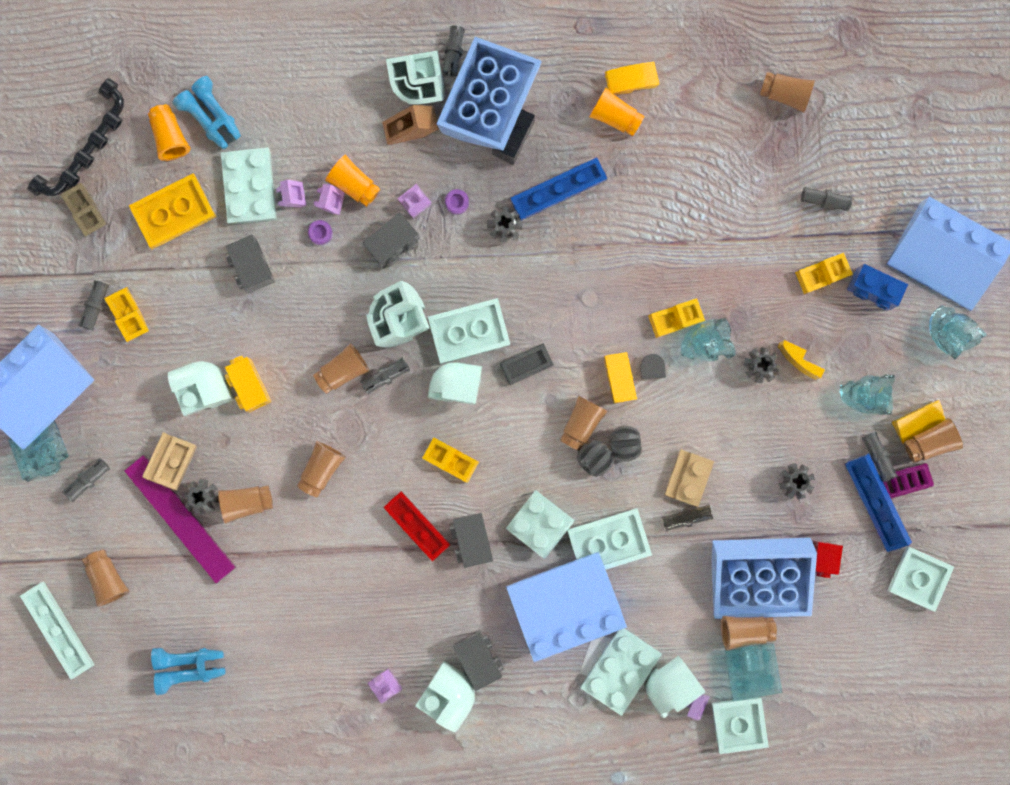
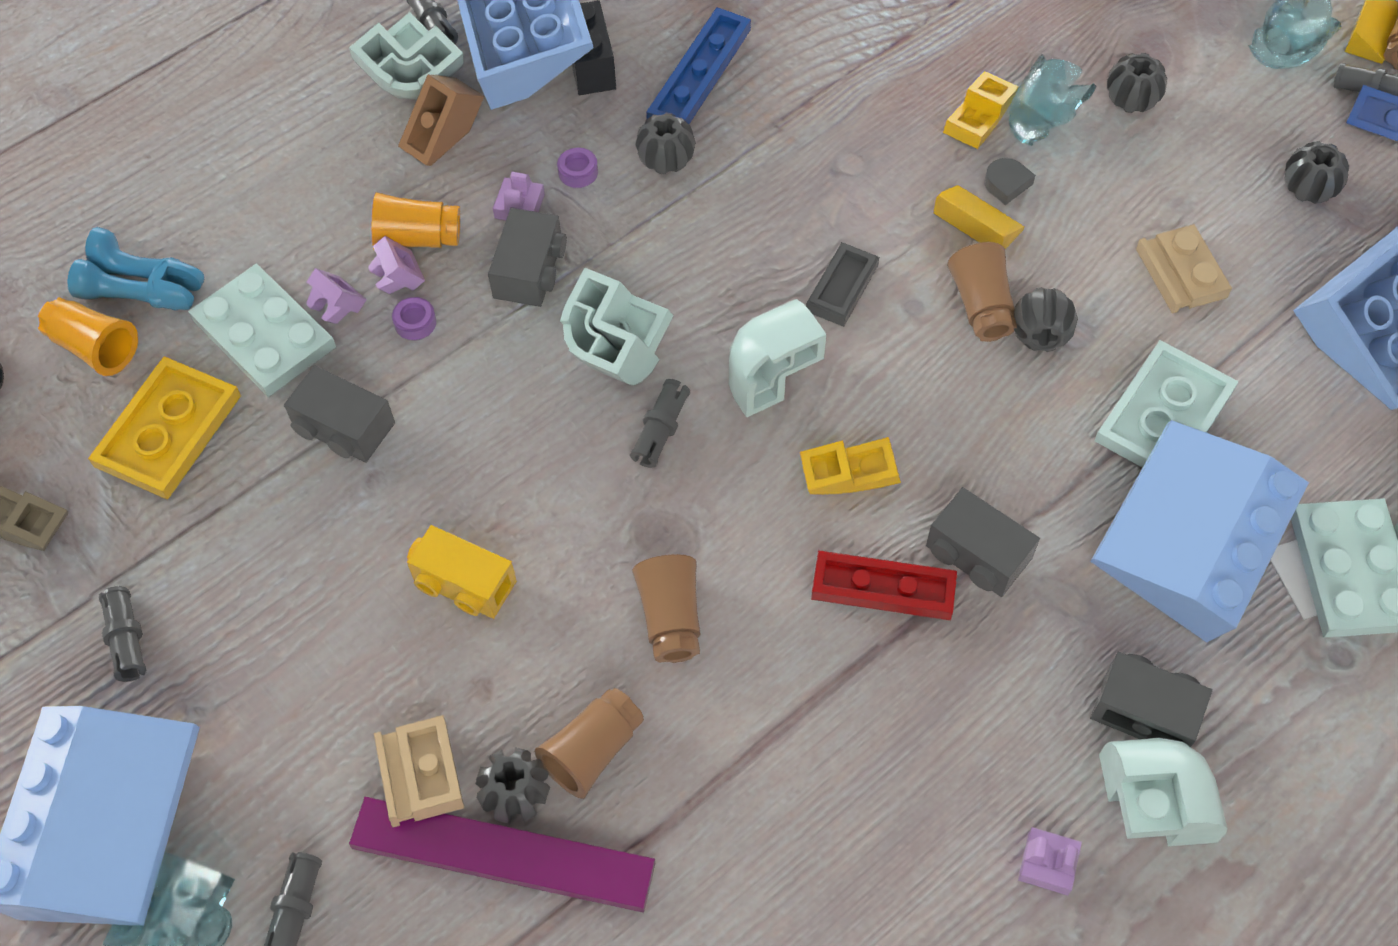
camera: 35 degrees left, 25 degrees down
(127, 314) = (187, 612): yellow slope -> none
(199, 387) = (385, 623): light aqua brick -> none
(341, 369) = (590, 452): medium nougat plant -> none
(469, 331) = (728, 290): light aqua plate -> none
(540, 524) = (1054, 454): light aqua plate -> none
(625, 443) = (1067, 270): dark grey piece -> none
(687, 517) = (1232, 310): clear smoke pin -> none
(795, 355) = (1178, 53): yellow slope -> none

